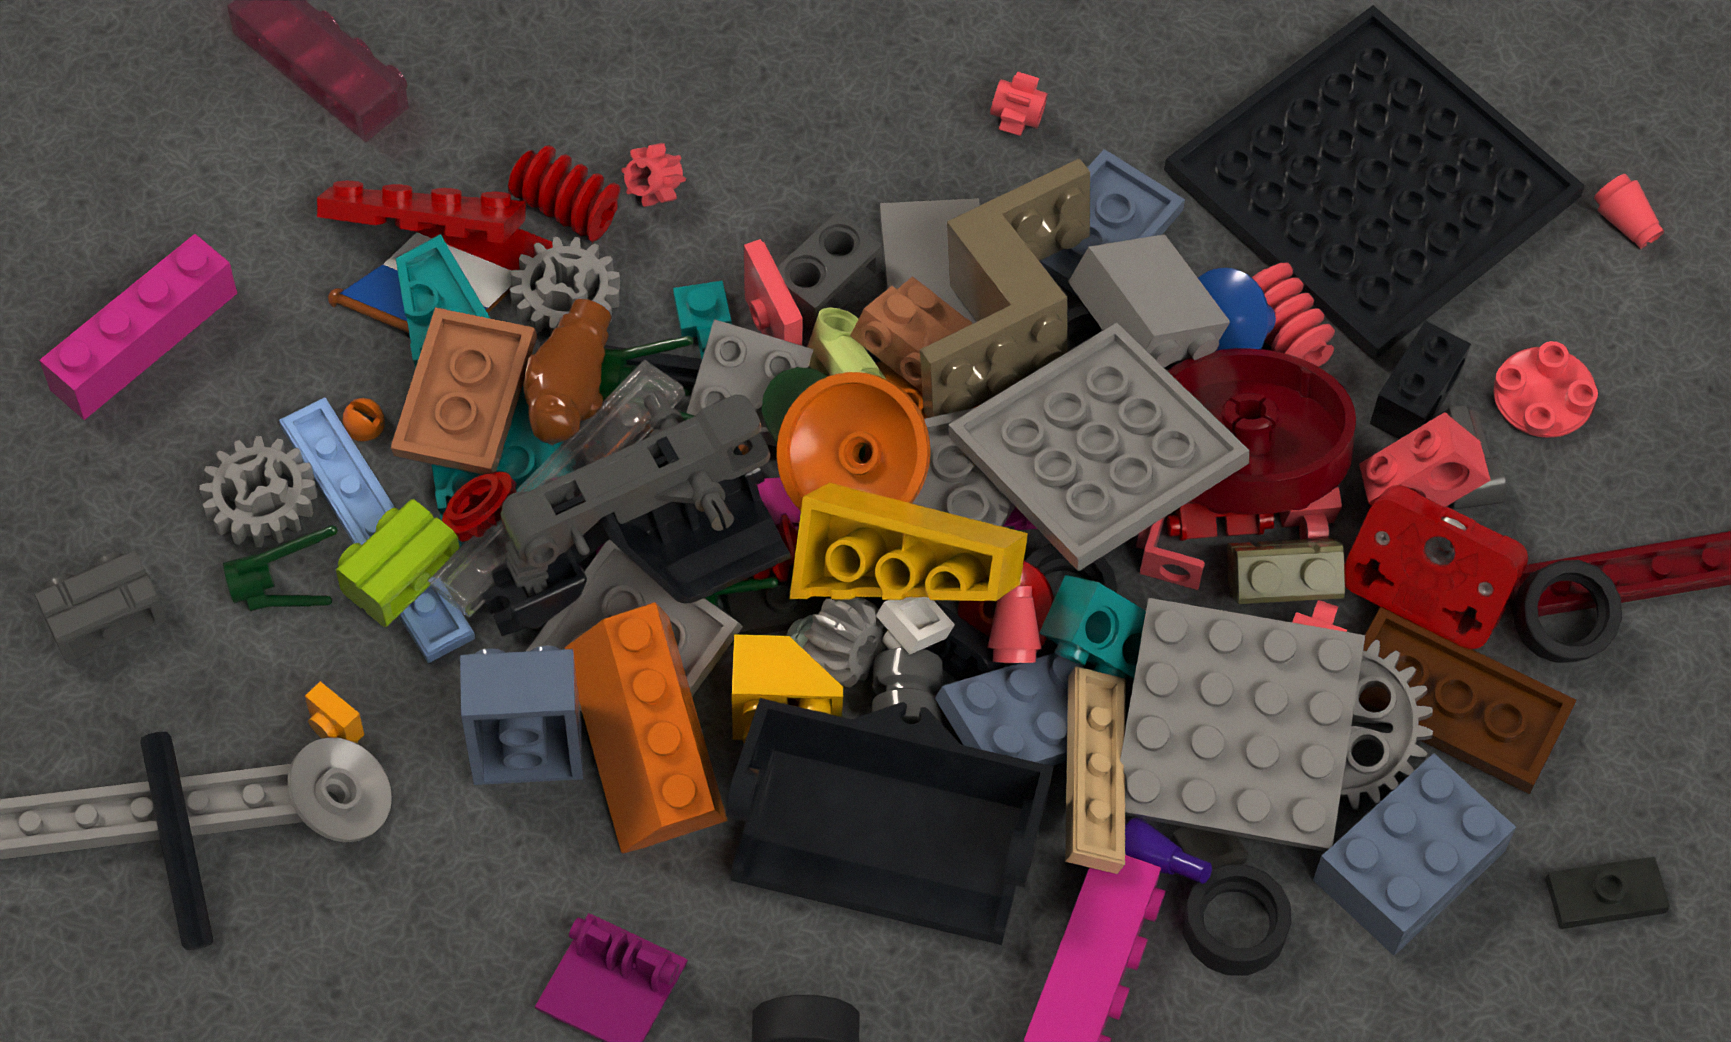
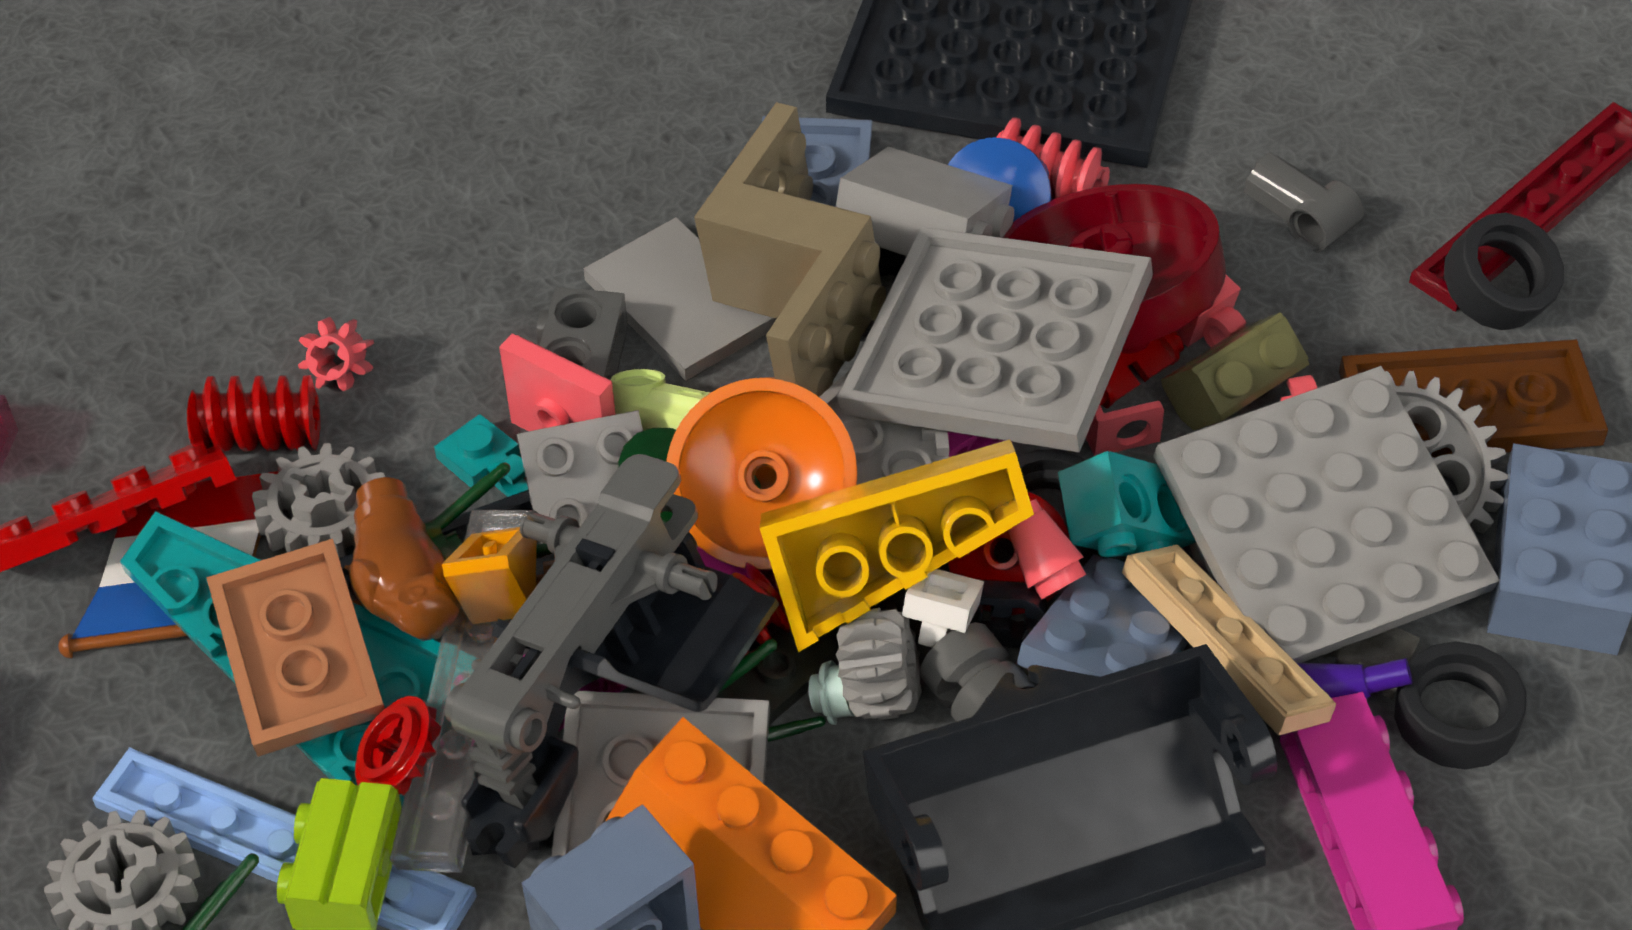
camera: 30 degrees left, 10 degrees down
(361, 425) = (185, 749): orange hinge -> none
(614, 415) = (492, 574): none -> light orange slope
(779, 672) = (828, 740): yellow slope -> none
(903, 323) = (715, 348): nougat plate -> none
(1018, 103) = (651, 118): coral gear -> none
(1420, 381) = (1212, 155): black brick -> none
(1425, 580) = (1374, 309): red axle -> none
(1434, 460) = (1289, 218): coral brick -> none
(1545, 391) = (1315, 114): coral dish -> none

